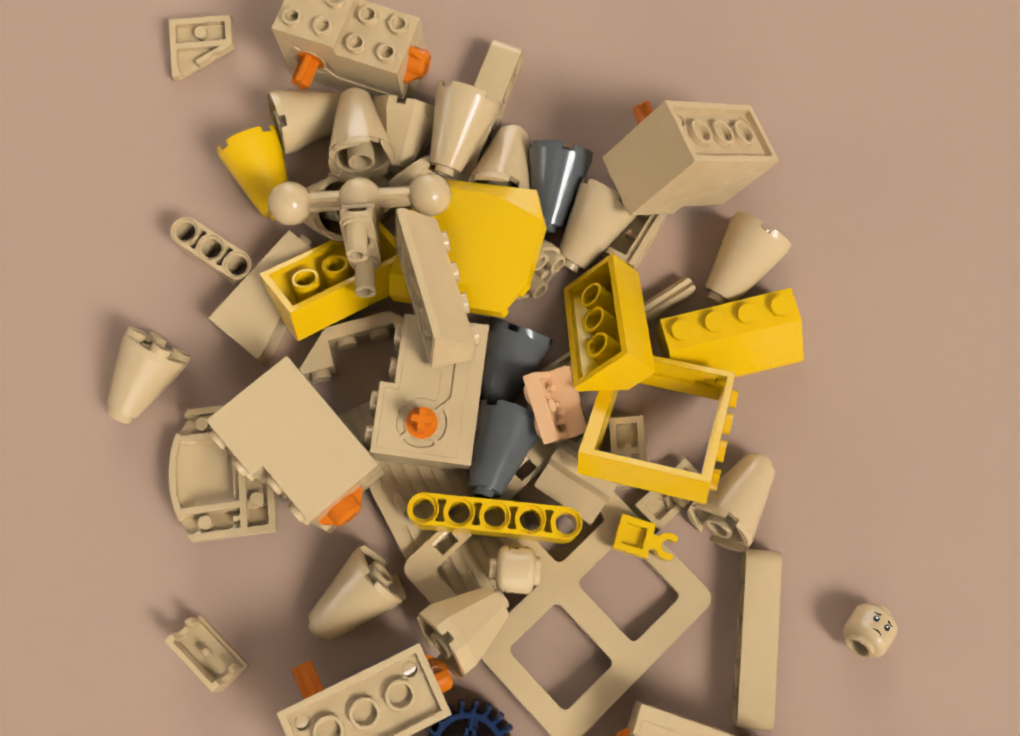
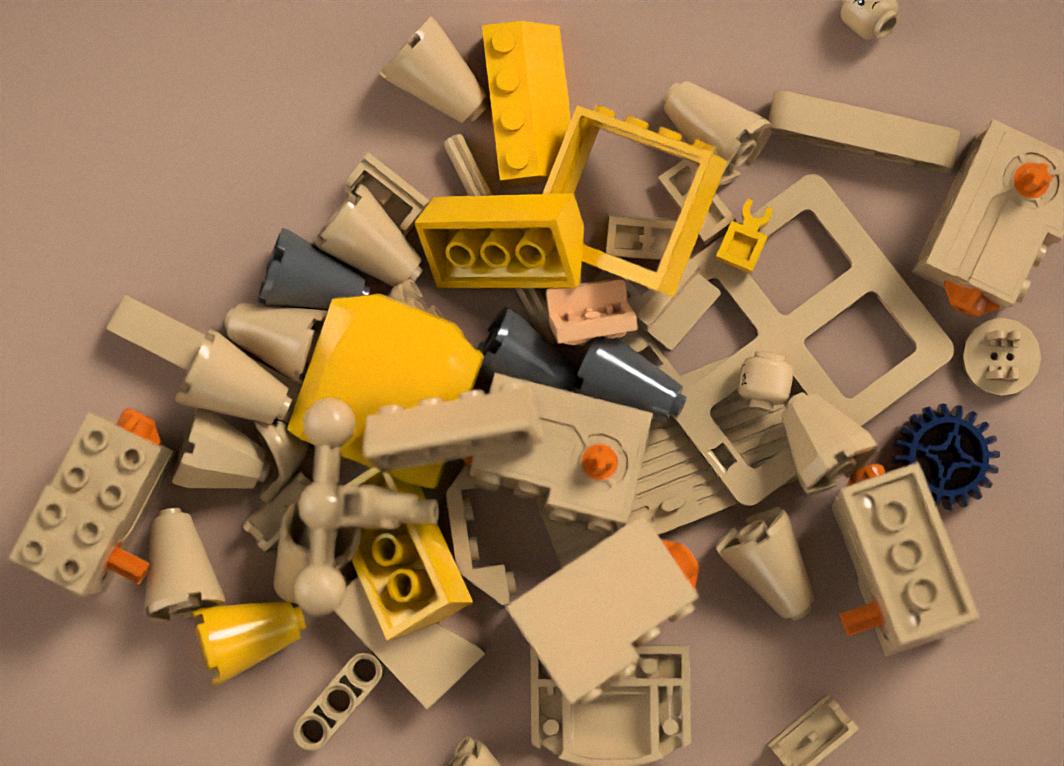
camera: 85 degrees left, 10 degrees up
(199, 42) = (50, 705): tan wing -> none
(357, 138) = (225, 506): tan cone -> none
(510, 510) = (706, 378): yellow beam -> none
(688, 156) = (314, 116): tan piece -> none

